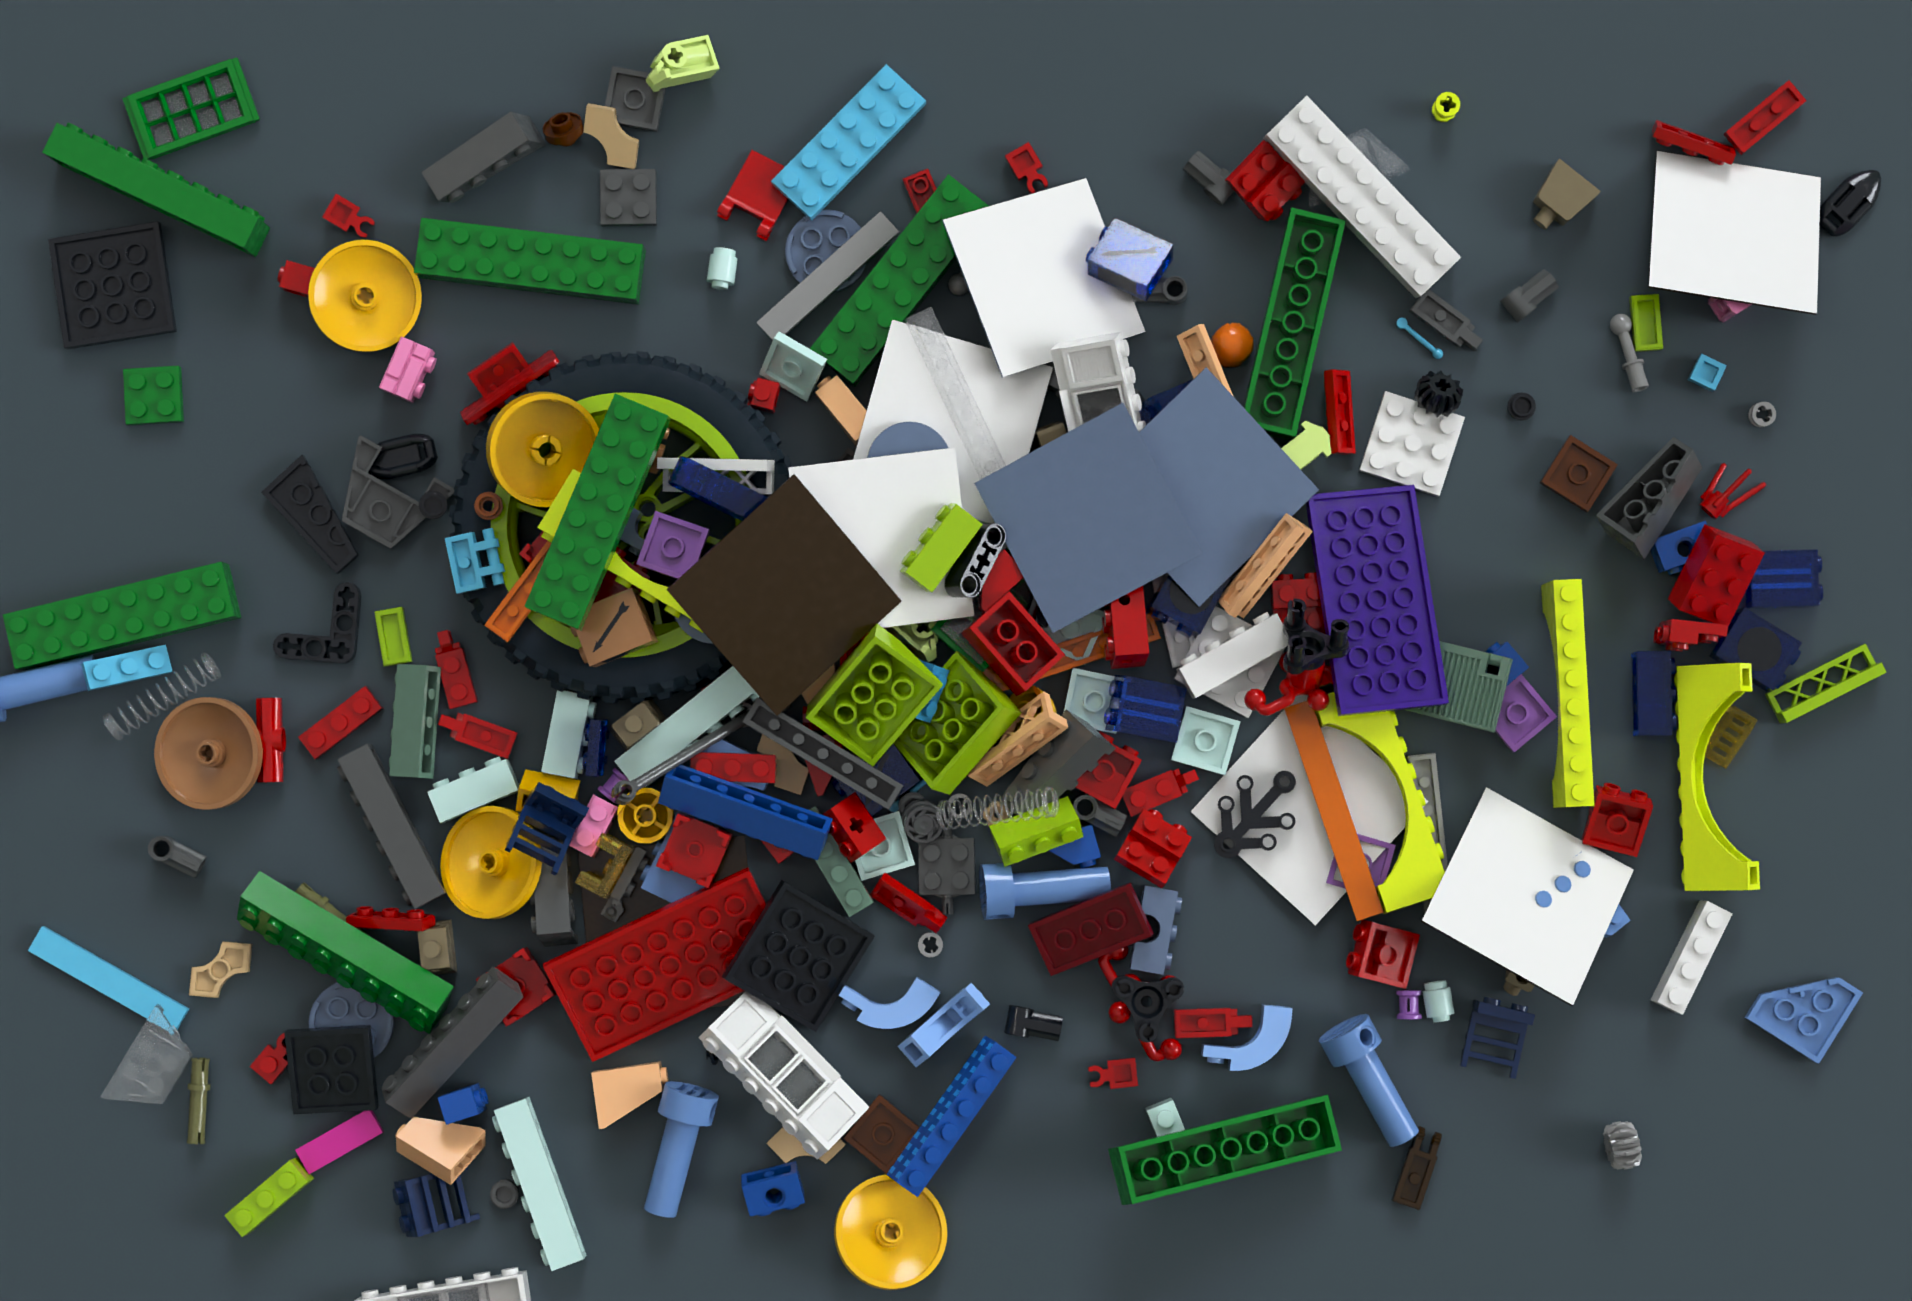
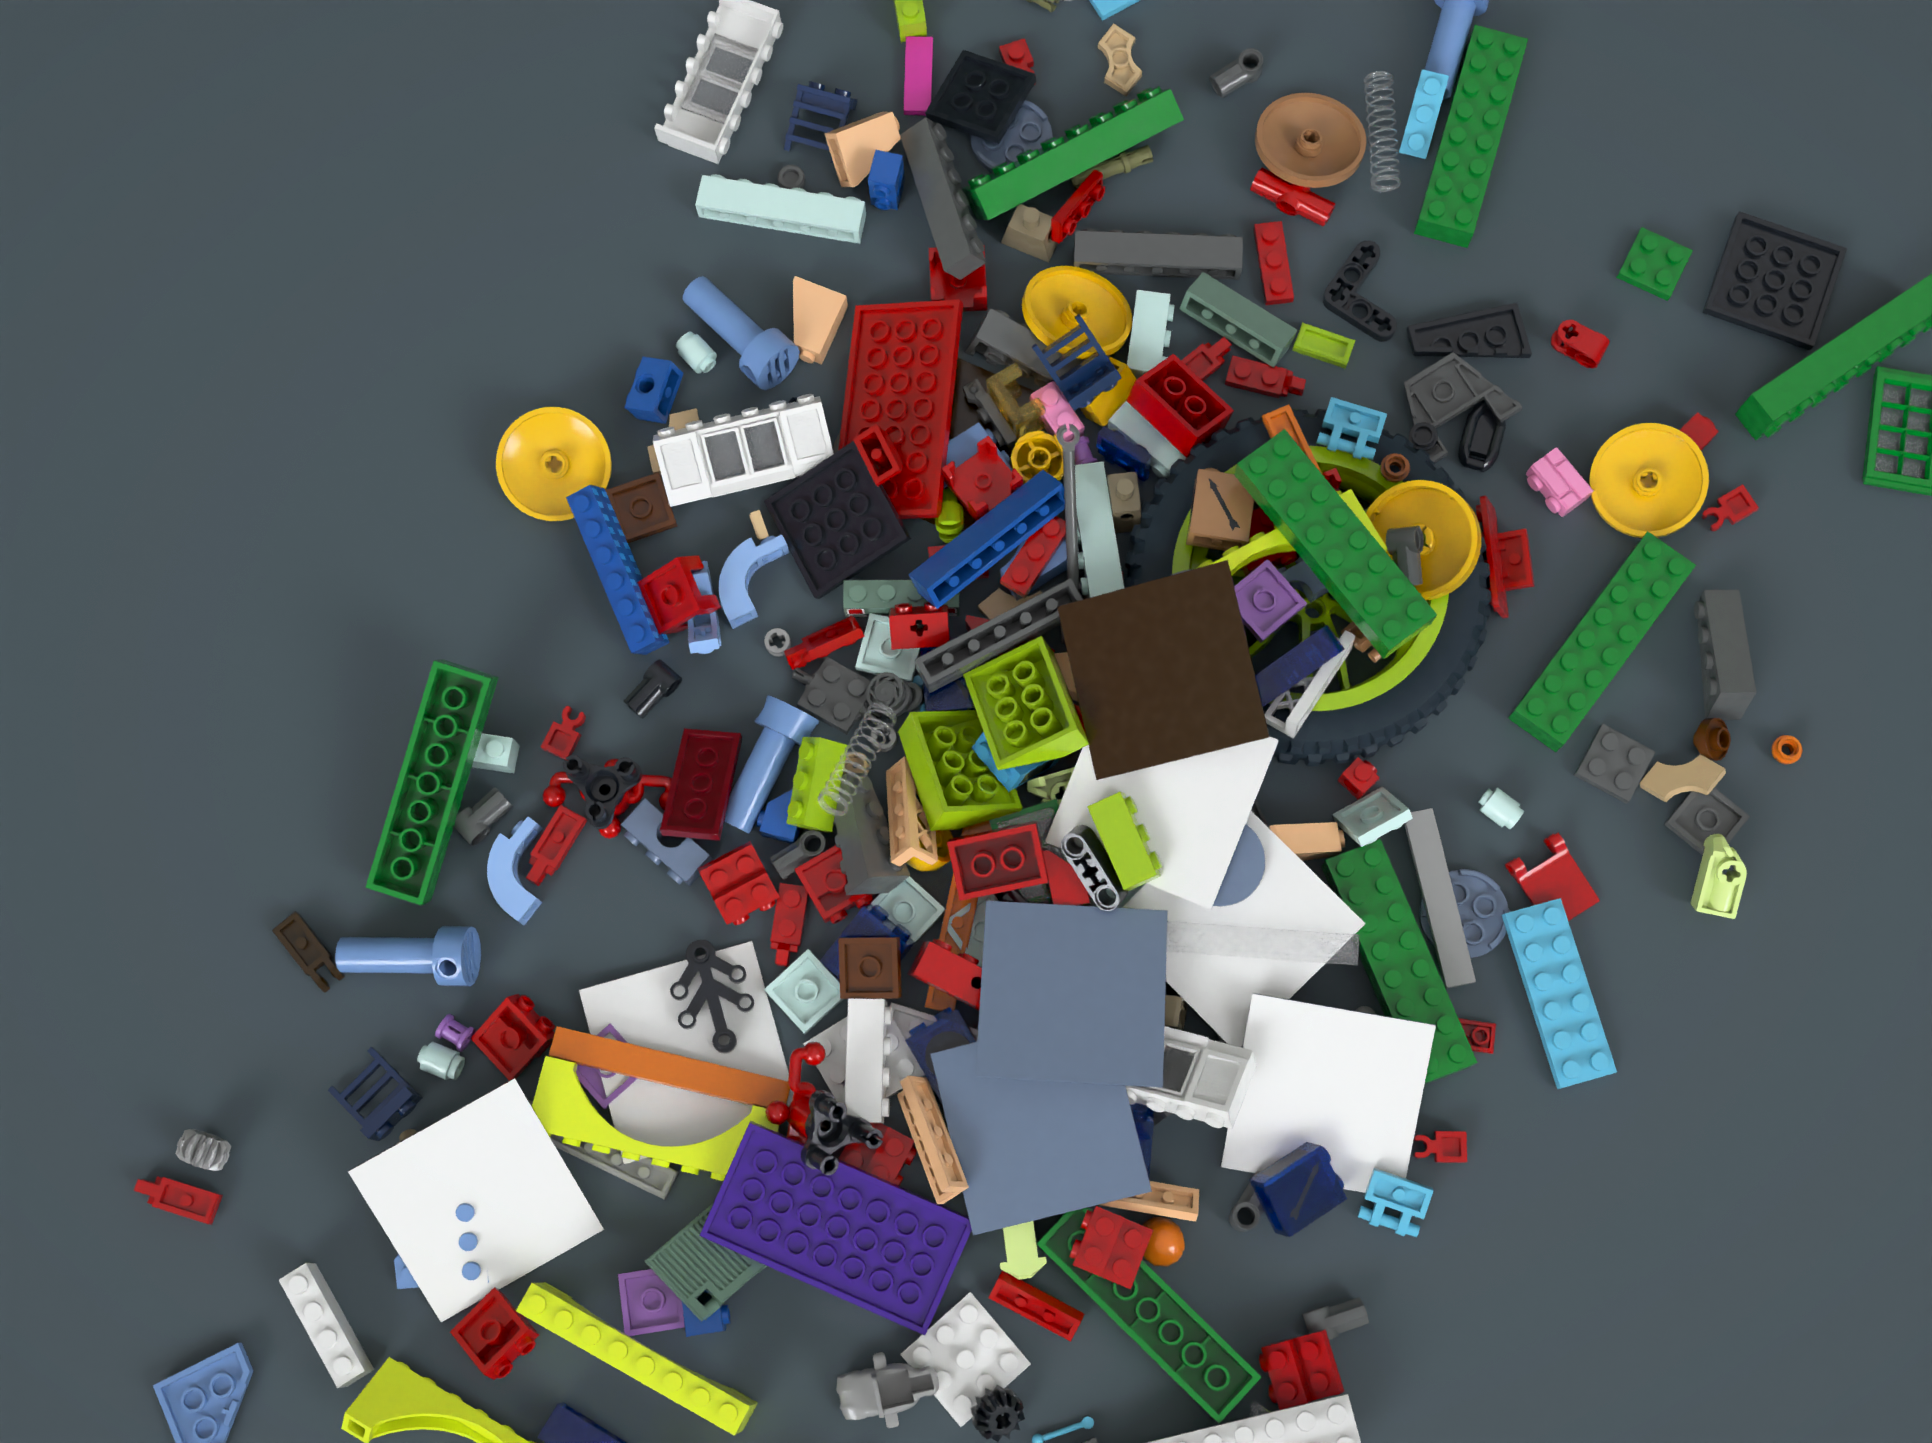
camera: 125 degrees right, 10 degrees down
(268, 413) = (1582, 344): none -> red piece
(529, 722) = (1179, 404): none -> red brick
(531, 58) = (1794, 746): none -> orange plate
(562, 454) = (1405, 547): none -> dark grey piece
(716, 1174) = (696, 352): none -> light aqua brick
(727, 947) = (879, 454): none -> red slope
(743, 857) = (951, 518): none -> lime arm
(839, 1022) = (758, 524): none -> tan tile
(947, 1050) = (674, 595): none -> red panel
(1086, 182) = (1398, 1194): none -> medium azure plate
(1160, 695) = (870, 967): none -> reddish brown plate
(1229, 1098) = (475, 821): none -> dark grey piece
(1264, 376) = (1111, 1246): none -> red plate
(1474, 490) = (884, 1389): none -> light grey piece
(1669, 1140) = (181, 1198): none -> red hinge

